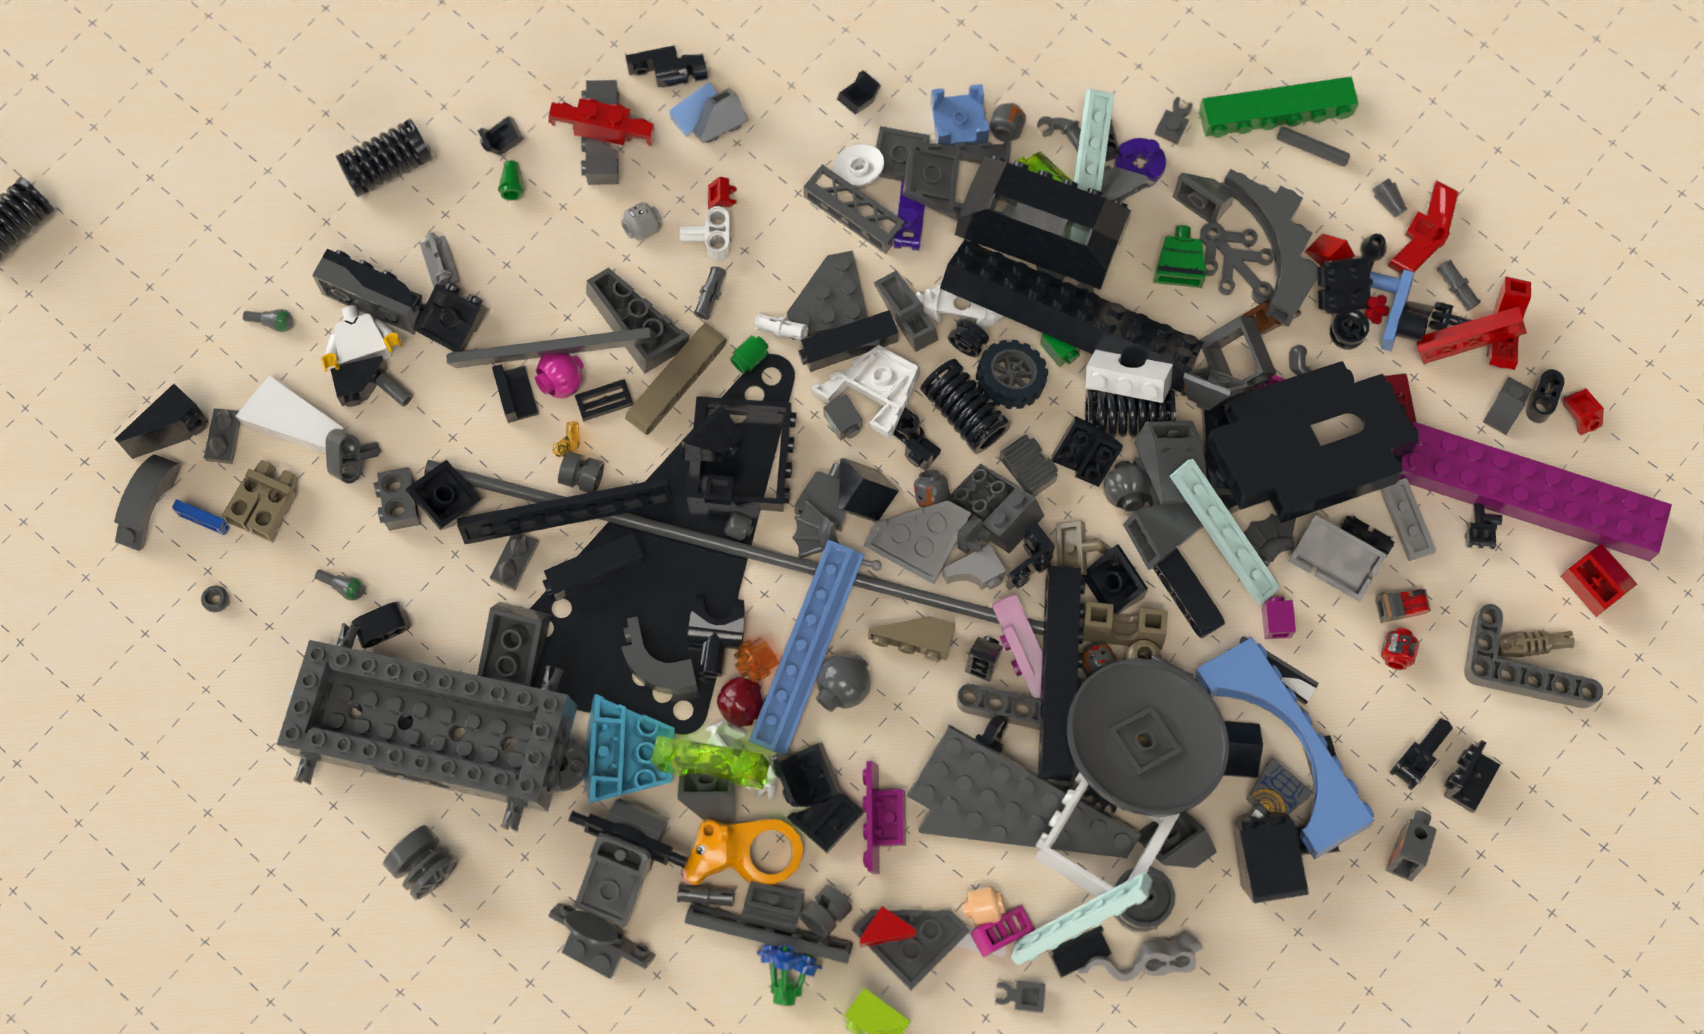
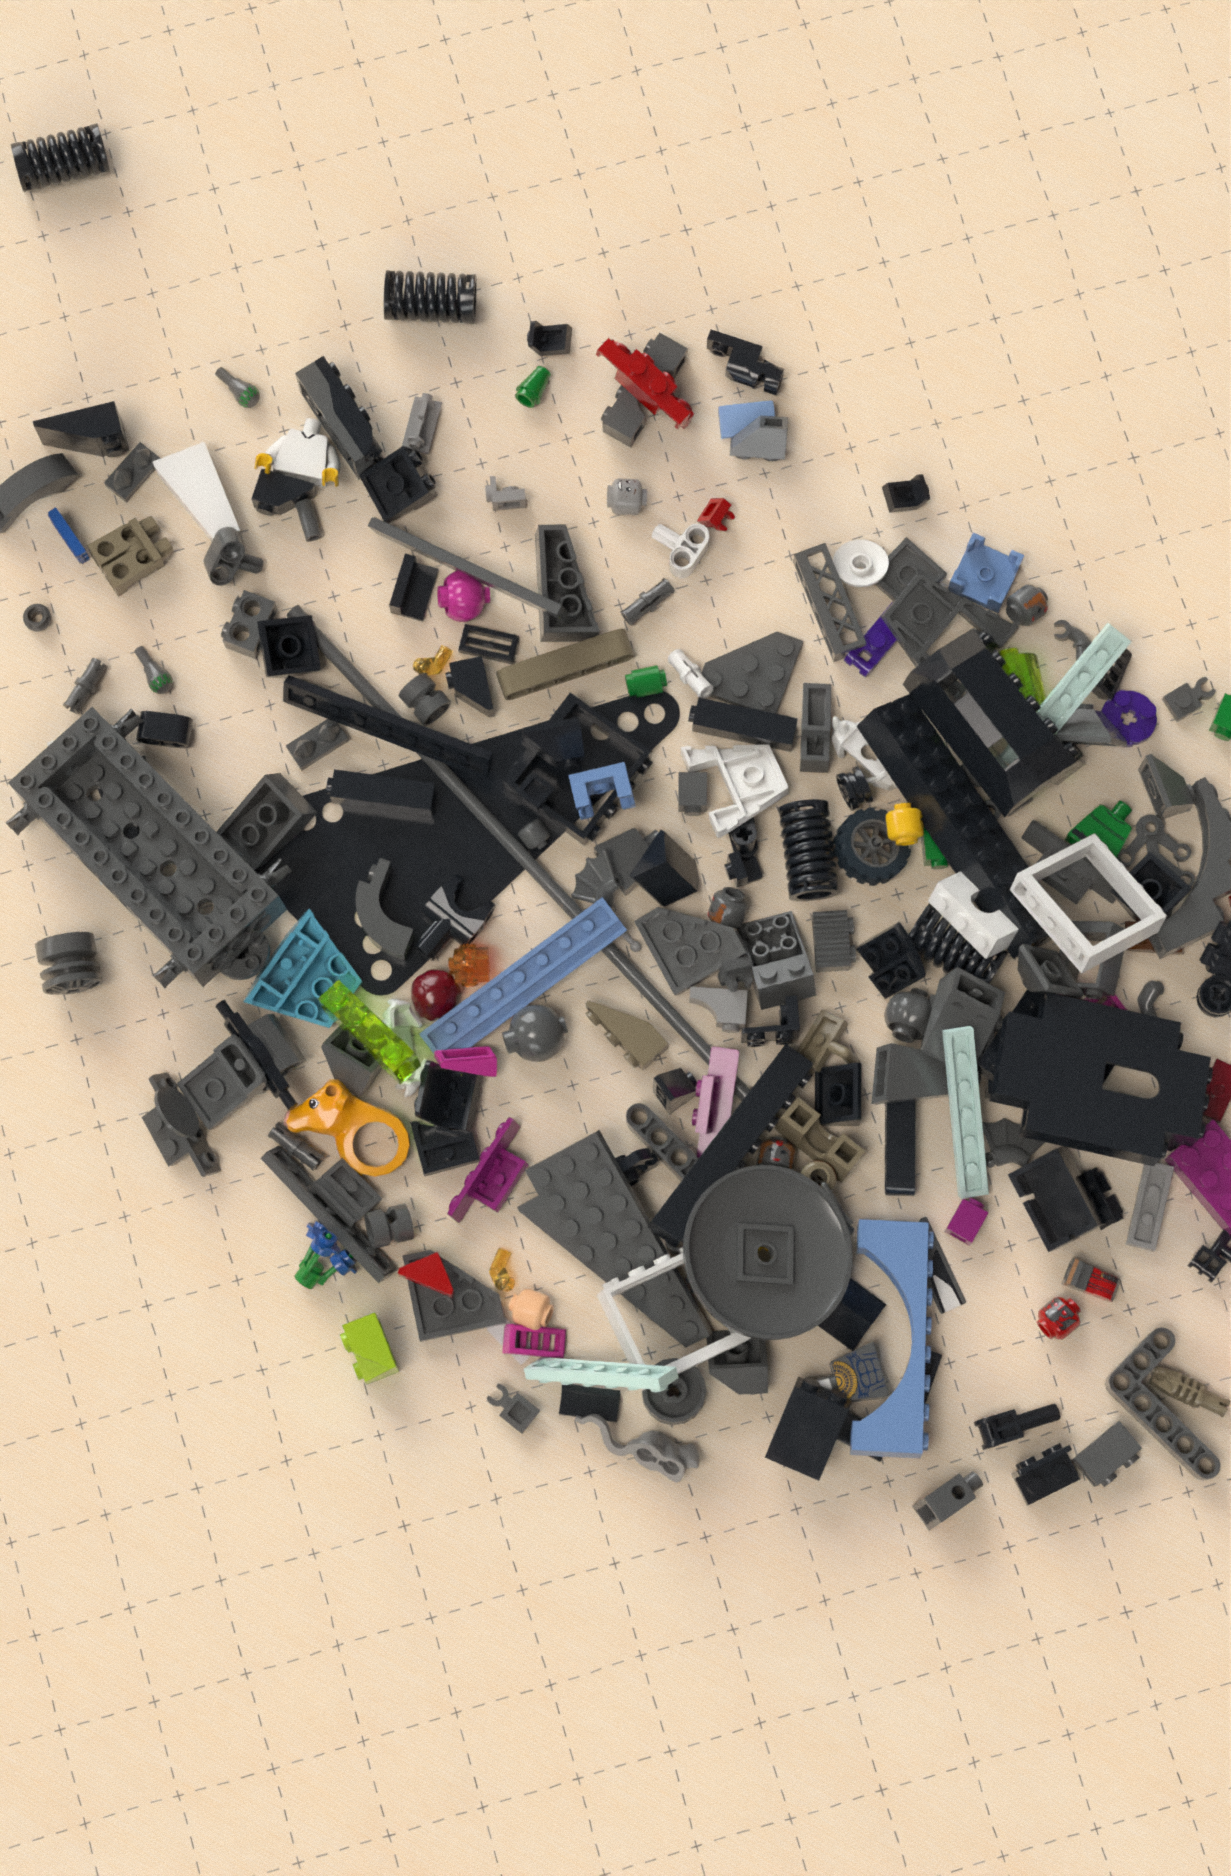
camera: 35 degrees right, 5 degrees up
(290, 629) = (85, 686): none -> dark grey pin
(545, 279) = (508, 498): none -> light grey bracket
(611, 439) = (471, 684): none -> black slope
(779, 437) = (601, 781): none -> medium blue panel
(807, 734) = (469, 1060): none -> dark pink slope
(938, 893) = (499, 1273): none -> clear yellow arm
(1028, 340) = (904, 824): none -> yellow head
(1172, 300) = (1073, 879): none -> dark grey bracket
(1205, 339) = (1062, 929): none -> white window
(1249, 278) = (1158, 882): none -> black slope
(1508, 732) = (1107, 1454): none -> dark grey brick

